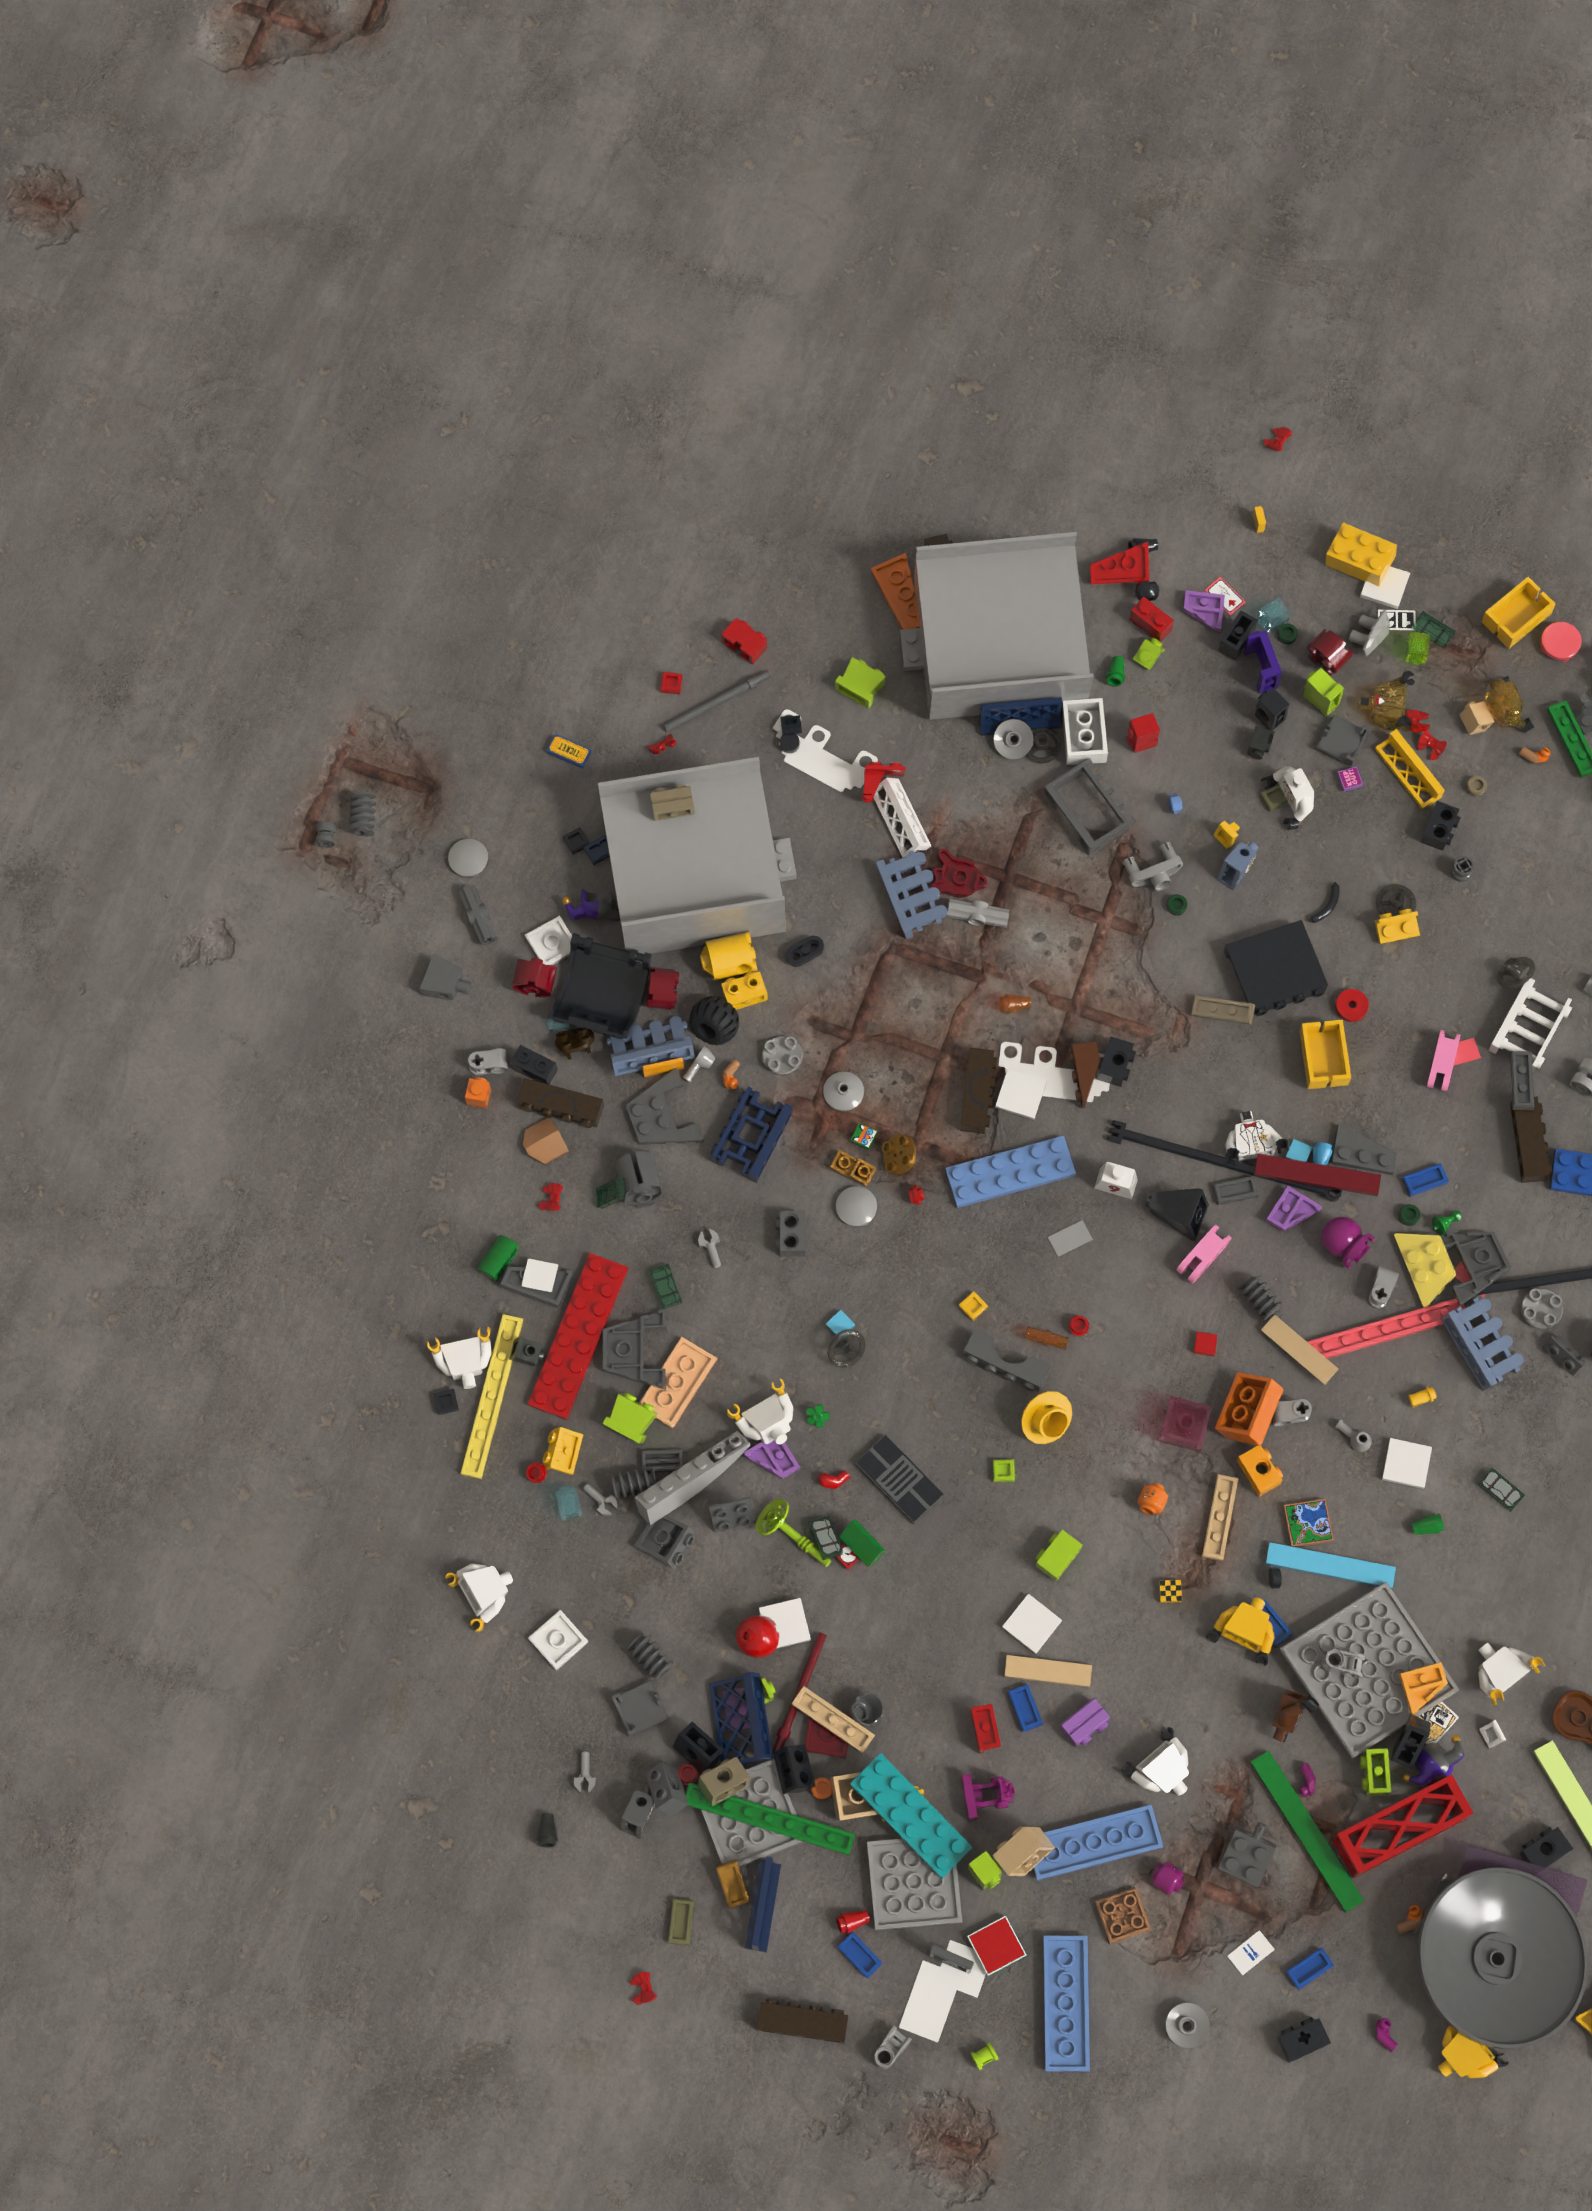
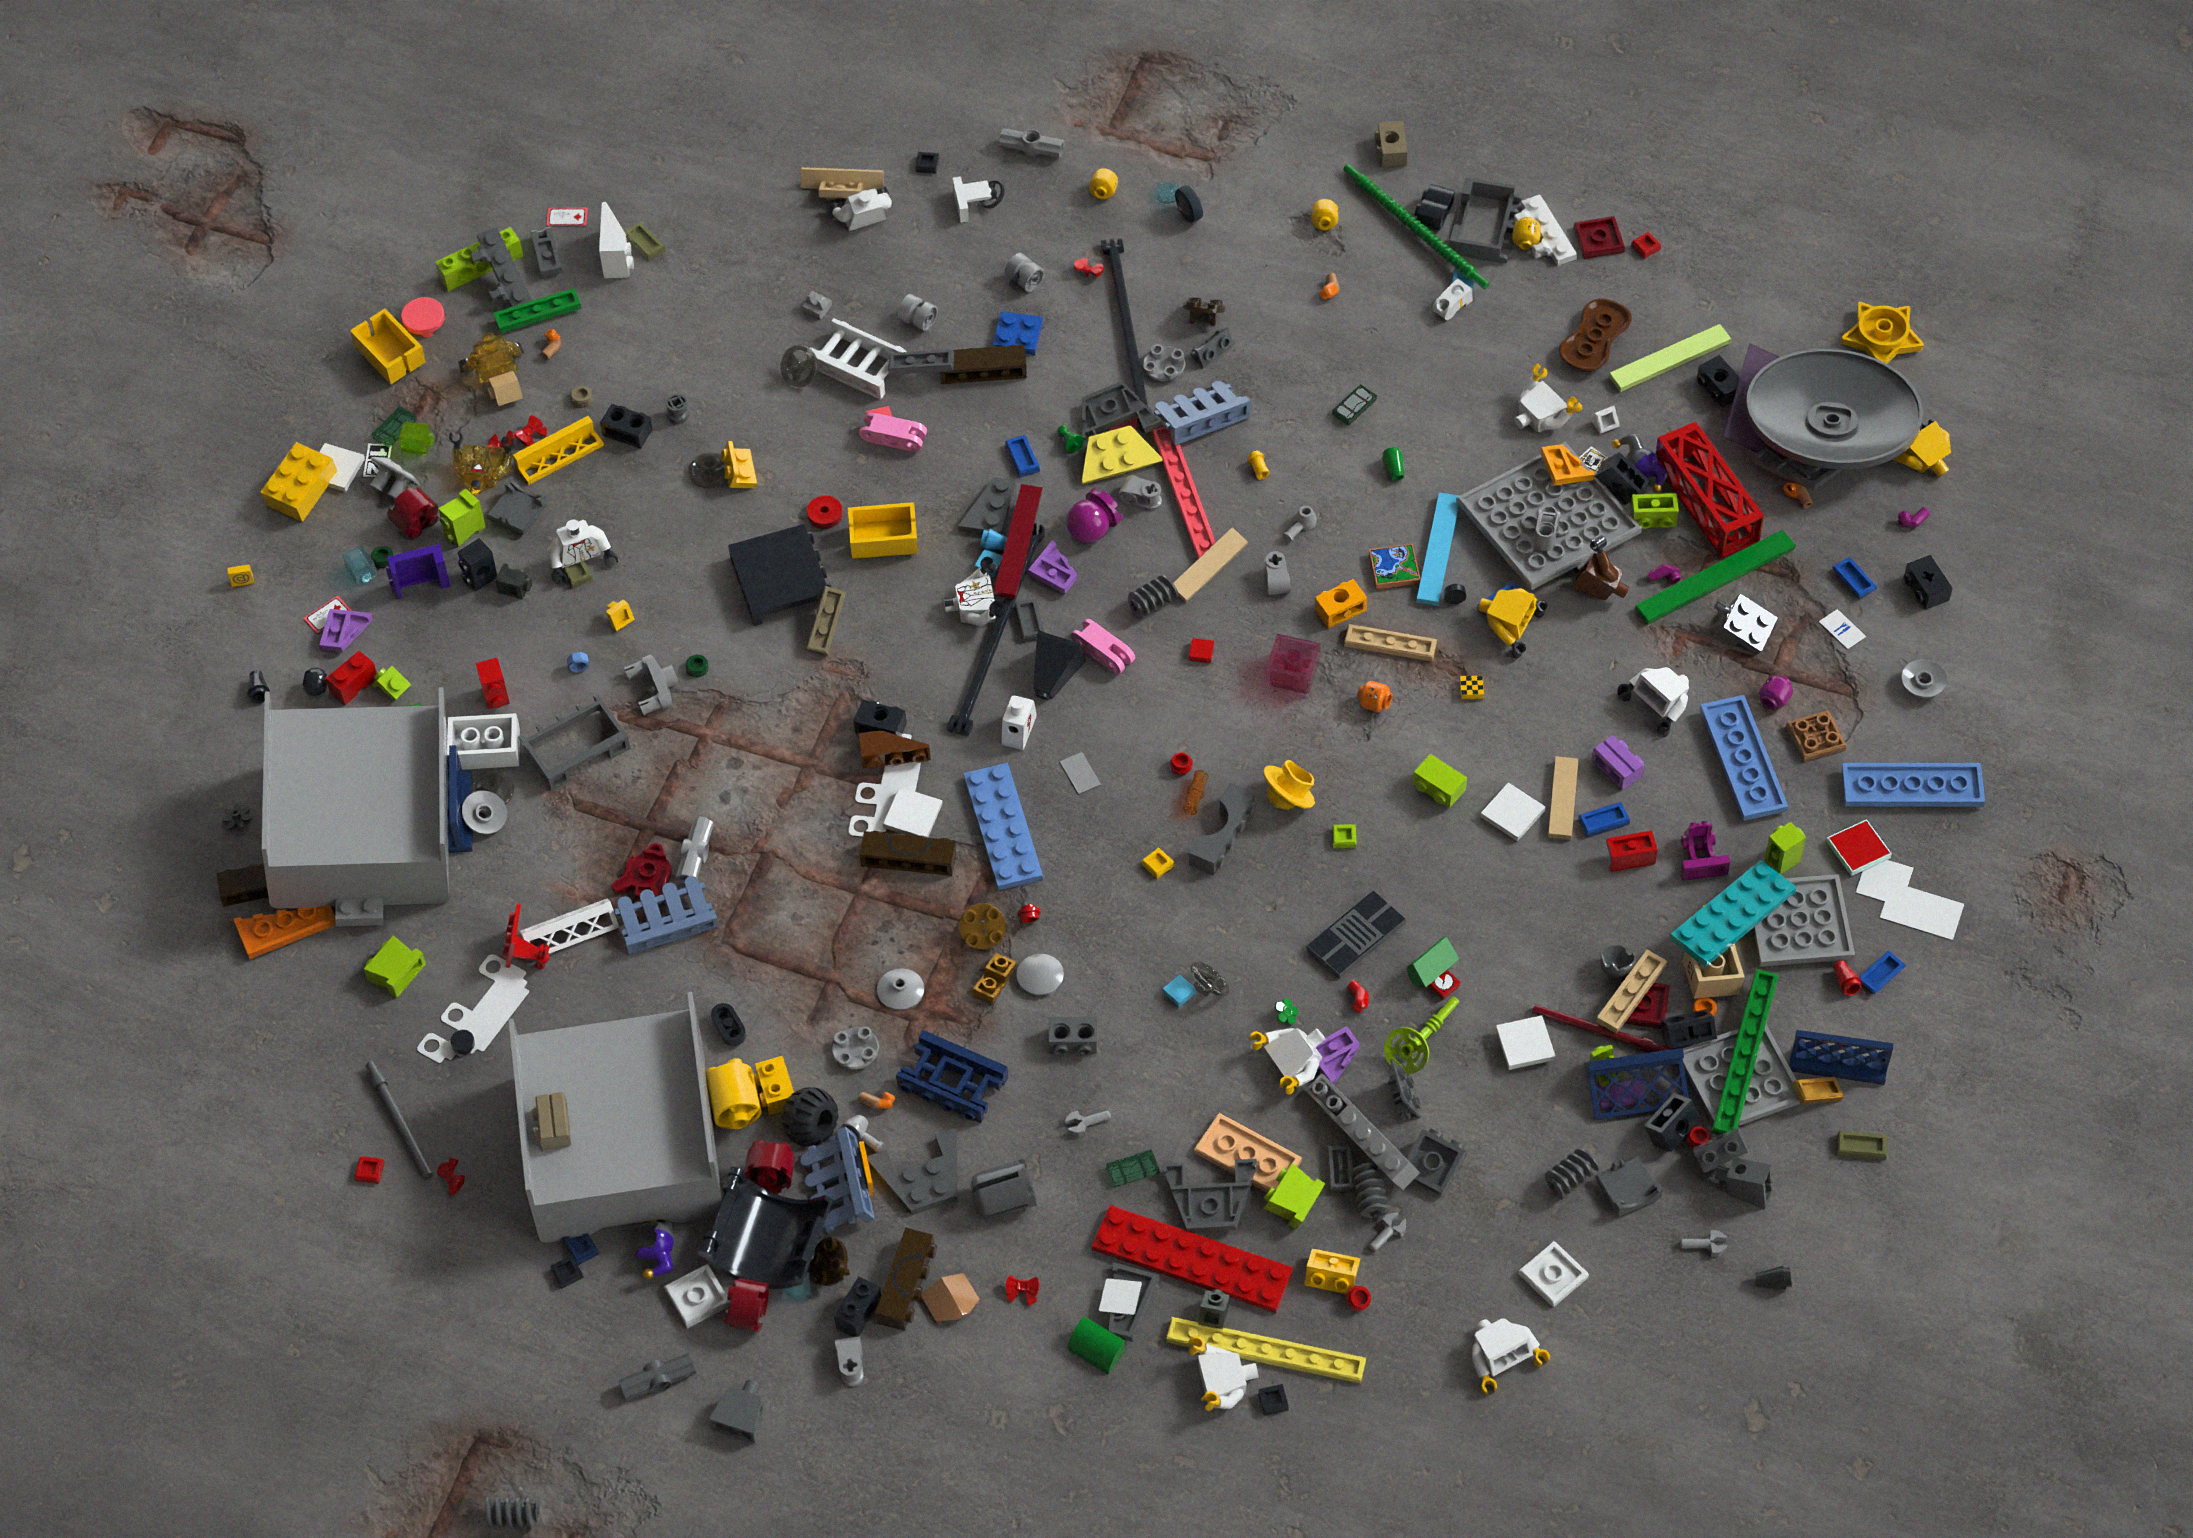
camera: 90 degrees left, 15 degrees down
(468, 857) = (579, 1391): light grey dish -> none
(478, 1092) = (889, 1368): orange brick -> none
(568, 1502) = (1394, 1261): clear light blue brick -> none
(569, 751) = (447, 1281): tile -> none
(610, 1192) = (1022, 1218): clear green tile -> none
(647, 1995) = (1946, 1175): red piece -> none
(717, 1791) = (1706, 1078): dark tan brick -> none
(746, 640) = (324, 1086): red brick -> none
(757, 1636) = (1542, 1065): red cylinder -> none
(791, 724) = (440, 1038): black tile -> none
(802, 2022) = (1960, 1023): dark brown brick -> none
(825, 1538) = (1427, 1001): tile -> none
(864, 1136) = (956, 967): tile -> none
(891, 2047) = (1977, 941): light grey piece -> none
(951, 1959) = (1881, 878): dark grey tile -> none
(984, 2056) = (1975, 857): lime bush -> none
(1013, 1003) = (805, 820): clear orange cone -> none
(1023, 1850) = (1764, 807): tan brick -> none
(1122, 567) = (284, 691): red wing -> none
(1236, 635) = (382, 595): black brick -> none
(1237, 864) = (658, 602): sand blue torso -> none
(1249, 1408) = (1277, 604): orange brick -> none
(1282, 434) = (137, 552): red piece -> none
(1329, 907) = (716, 532): black piece -> none
(1350, 779) = (562, 505): tile -> none
(1406, 1463) = (1328, 481): white tile -> none
(1409, 1215) = (1060, 470): dark green tile -> none

